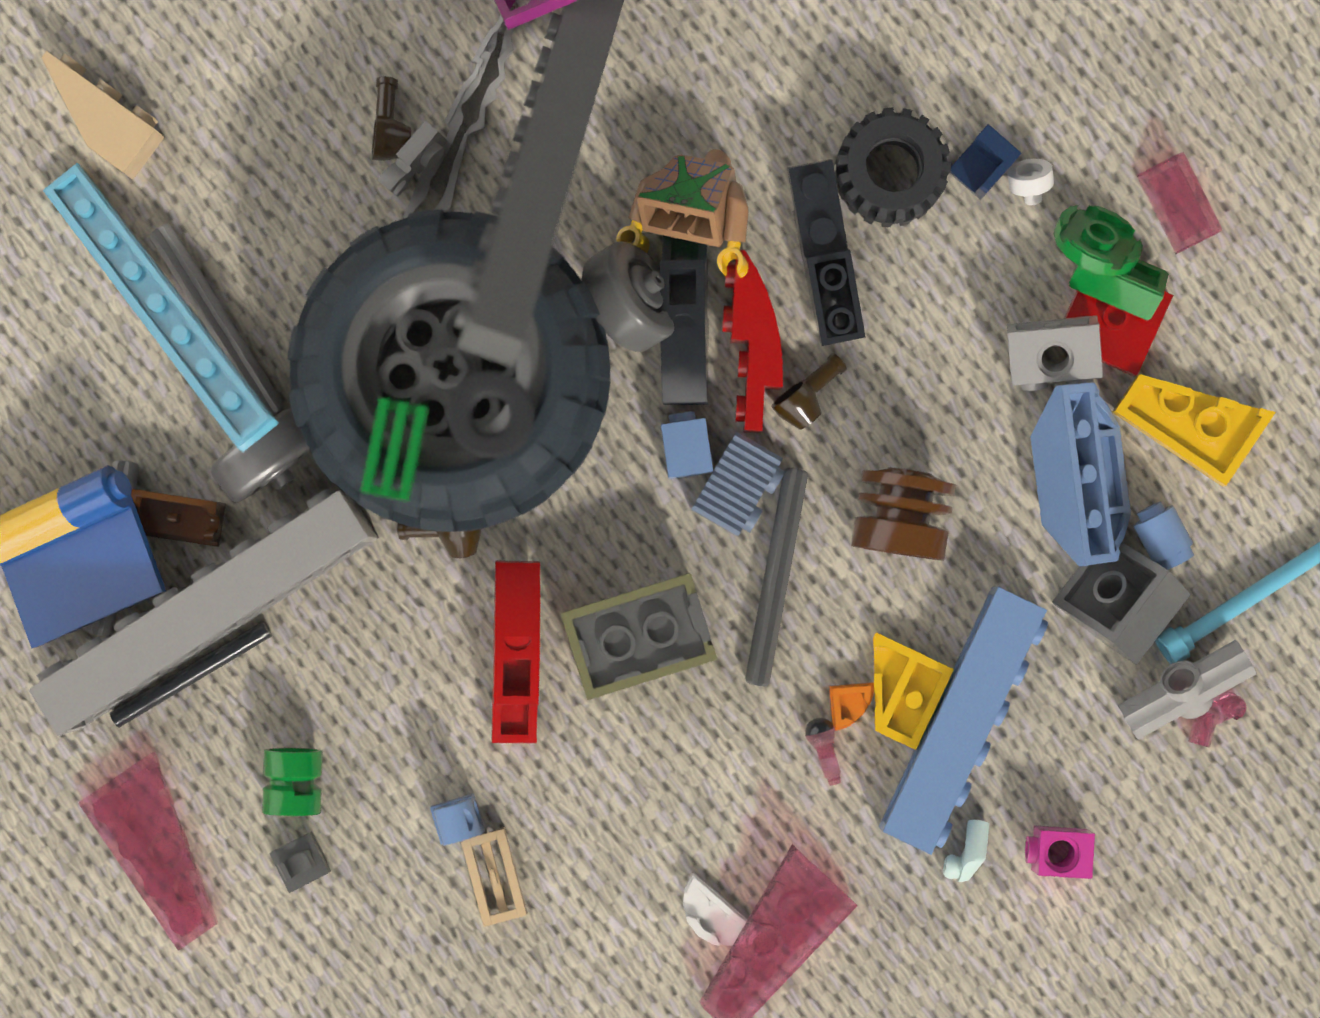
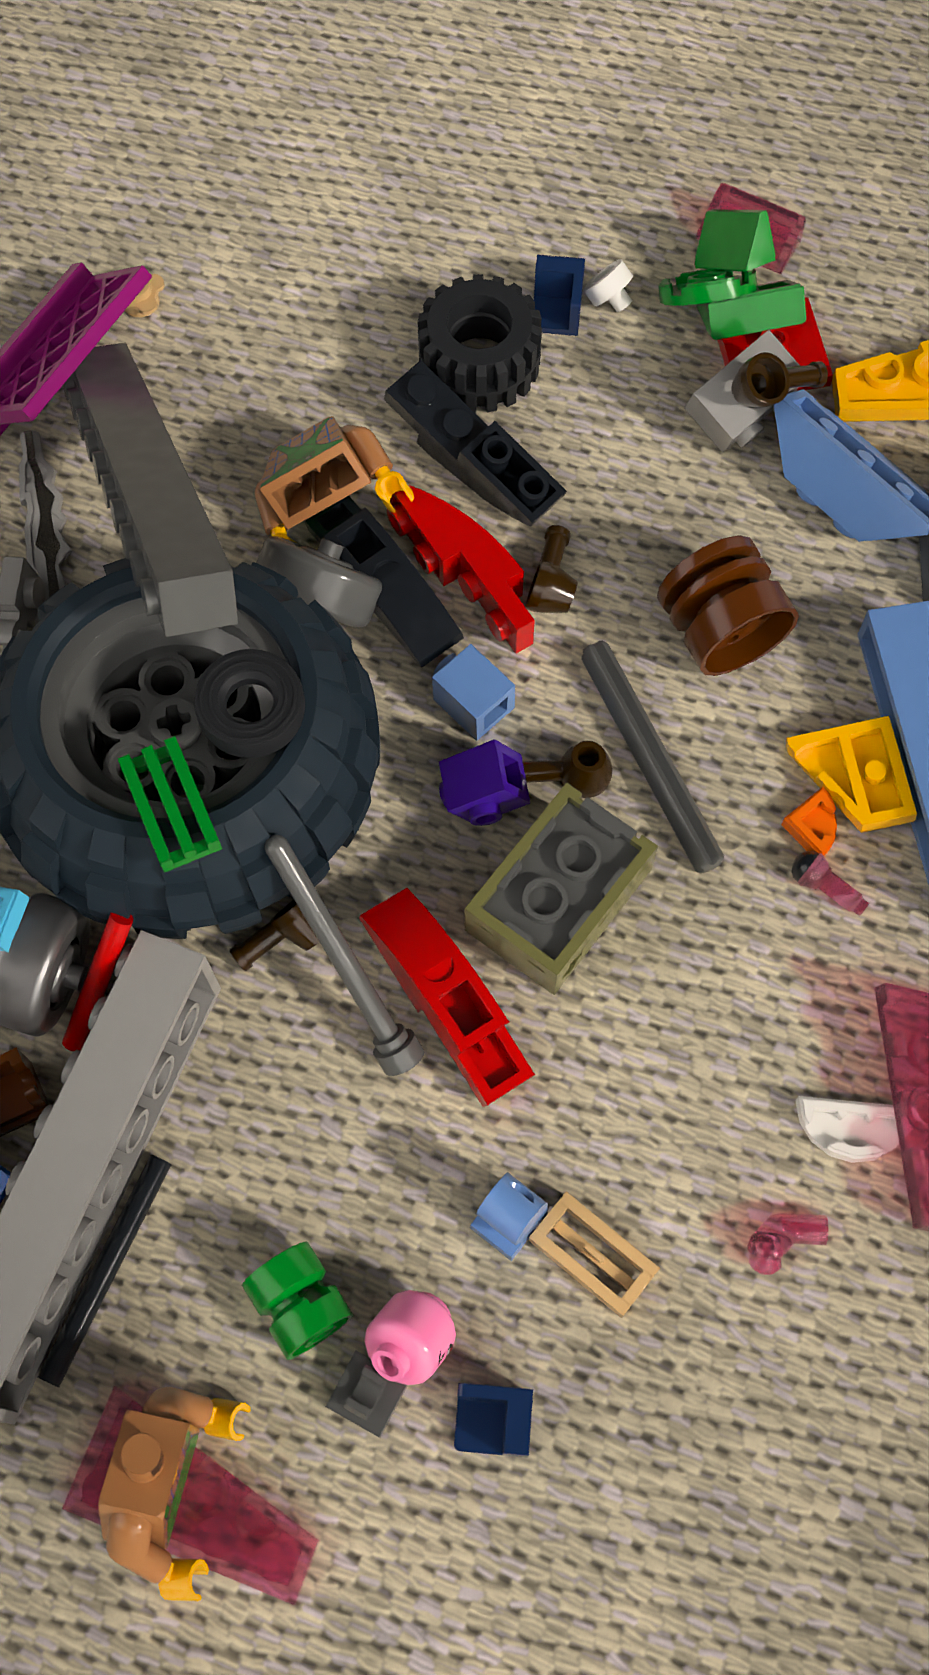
camera: 30 degrees left, 20 degrees down
(137, 830) = (149, 1480): none -> medium nougat torso
(292, 495) = (97, 979): none -> red bar
(344, 851) = (410, 1337): none -> bright pink head
(364, 931) = (493, 1420): none -> dark blue panel
(460, 662) = (395, 1047): none -> dark grey piece
(616, 946) = (779, 1234): none -> clear pink arm
(642, 525) = (483, 783): none -> dark purple brick
(711, 546) = (586, 779): none -> dark brown bar
(738, 485) = (549, 692): sand blue brick -> none
(1066, 372) = (766, 379): none -> dark brown bar
(1143, 219) = (735, 240): none -> green slope

